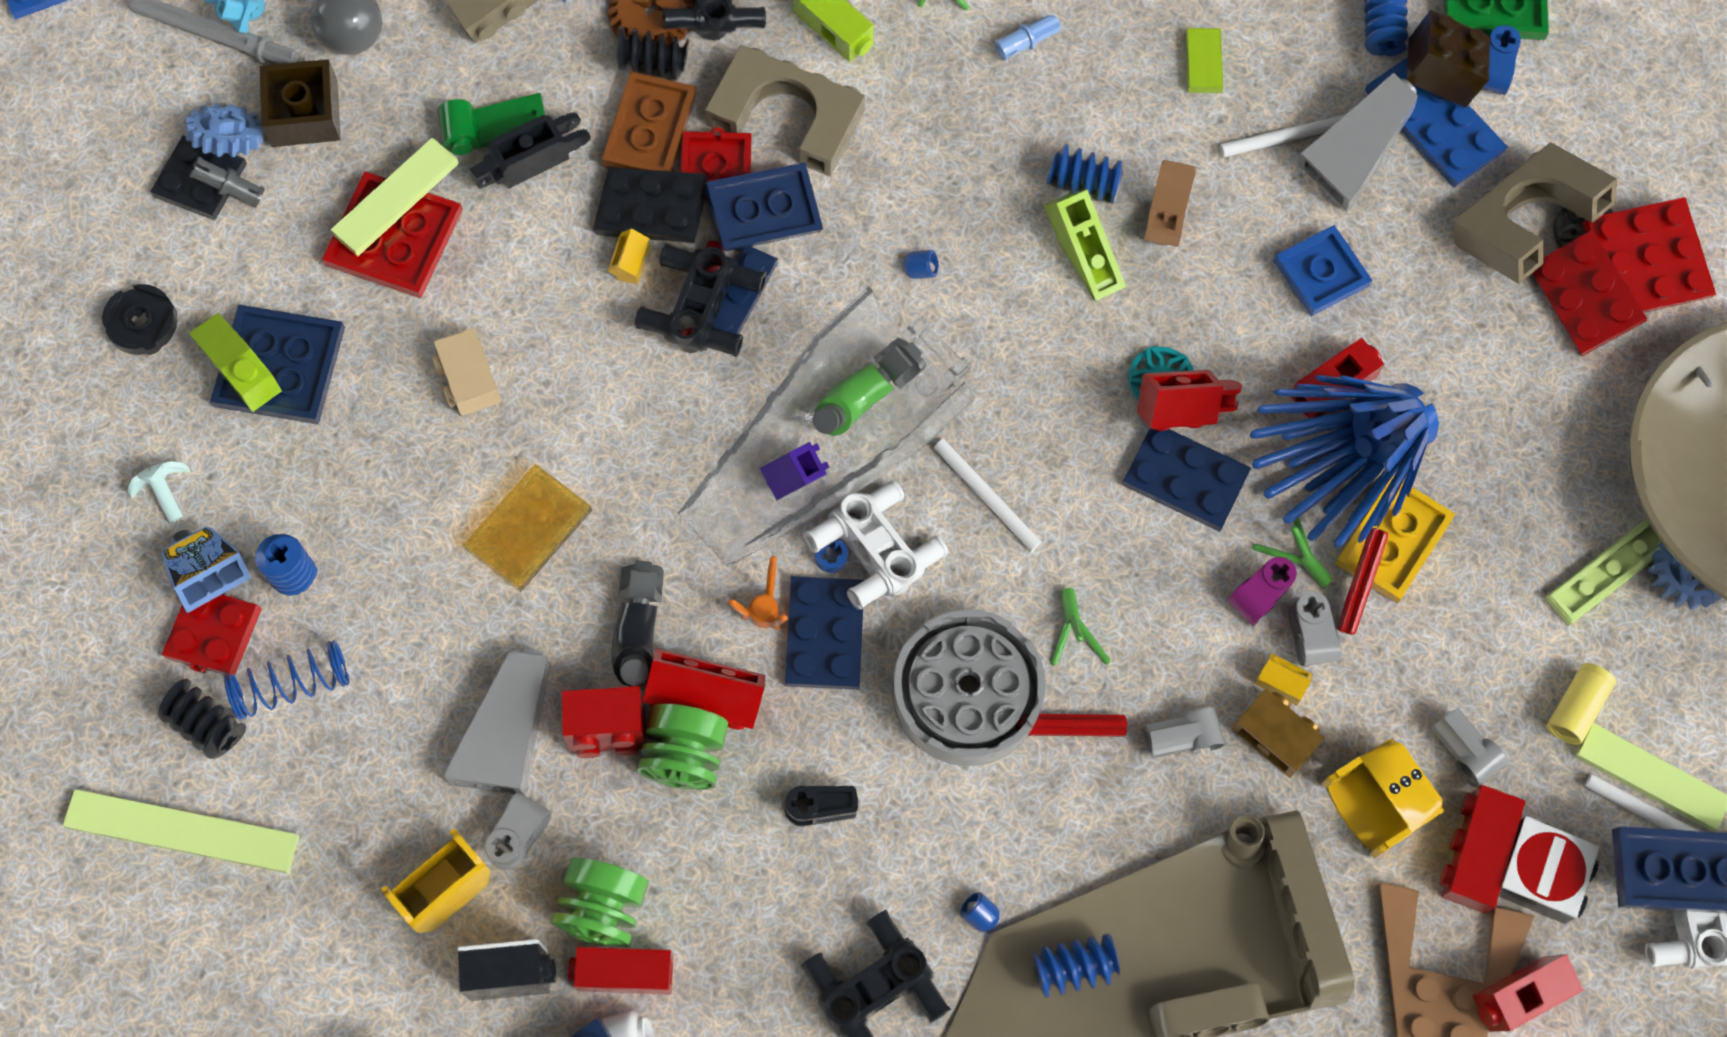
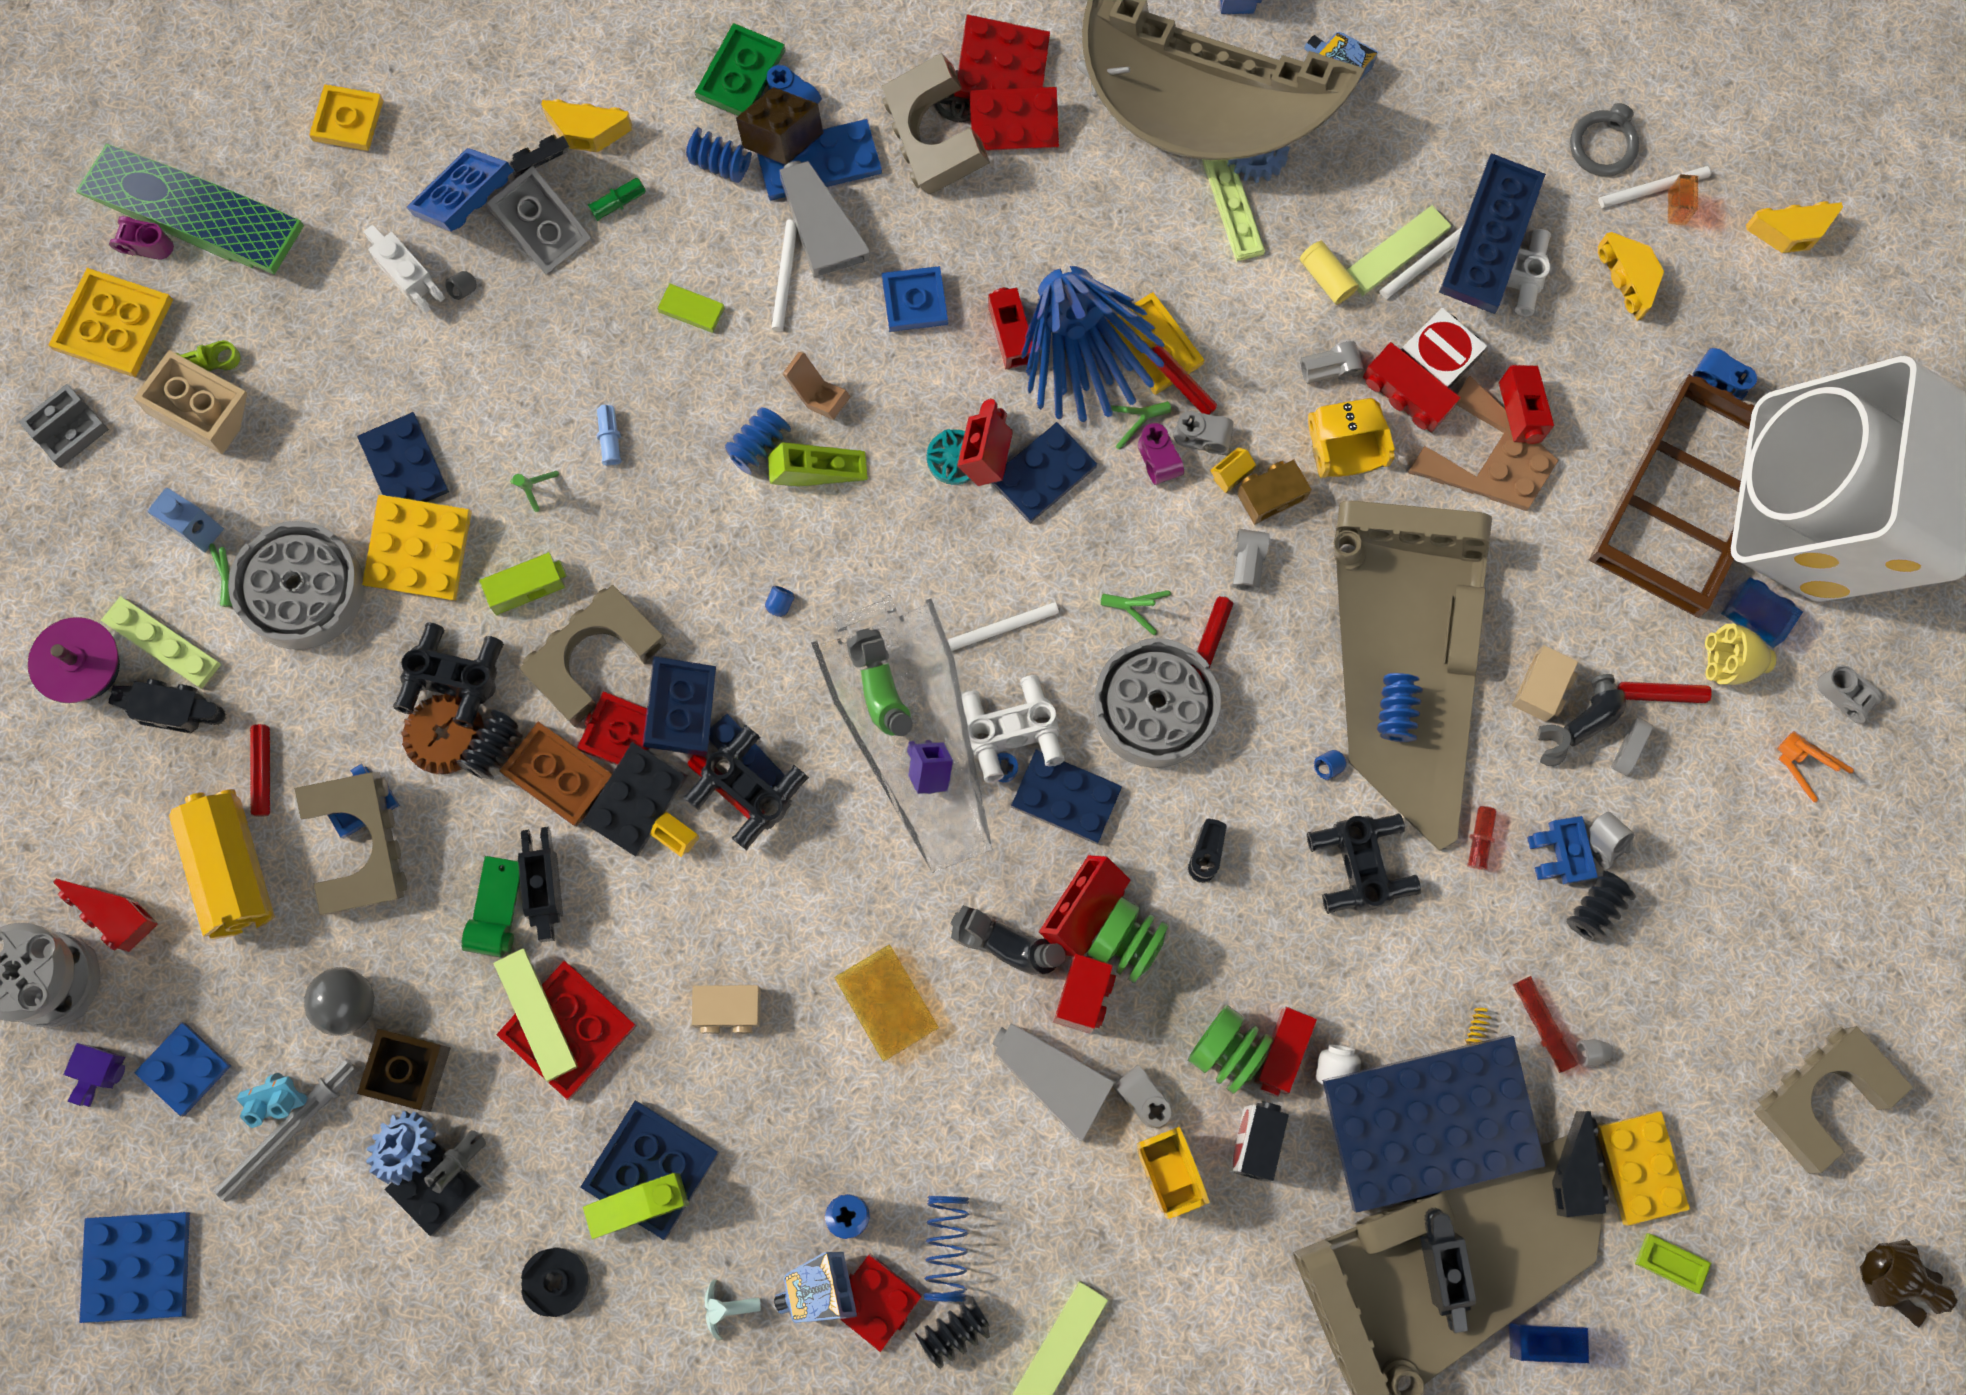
camera: 70 degrees left, 5 degrees up
(763, 608) = (1031, 835): orange plant -> none

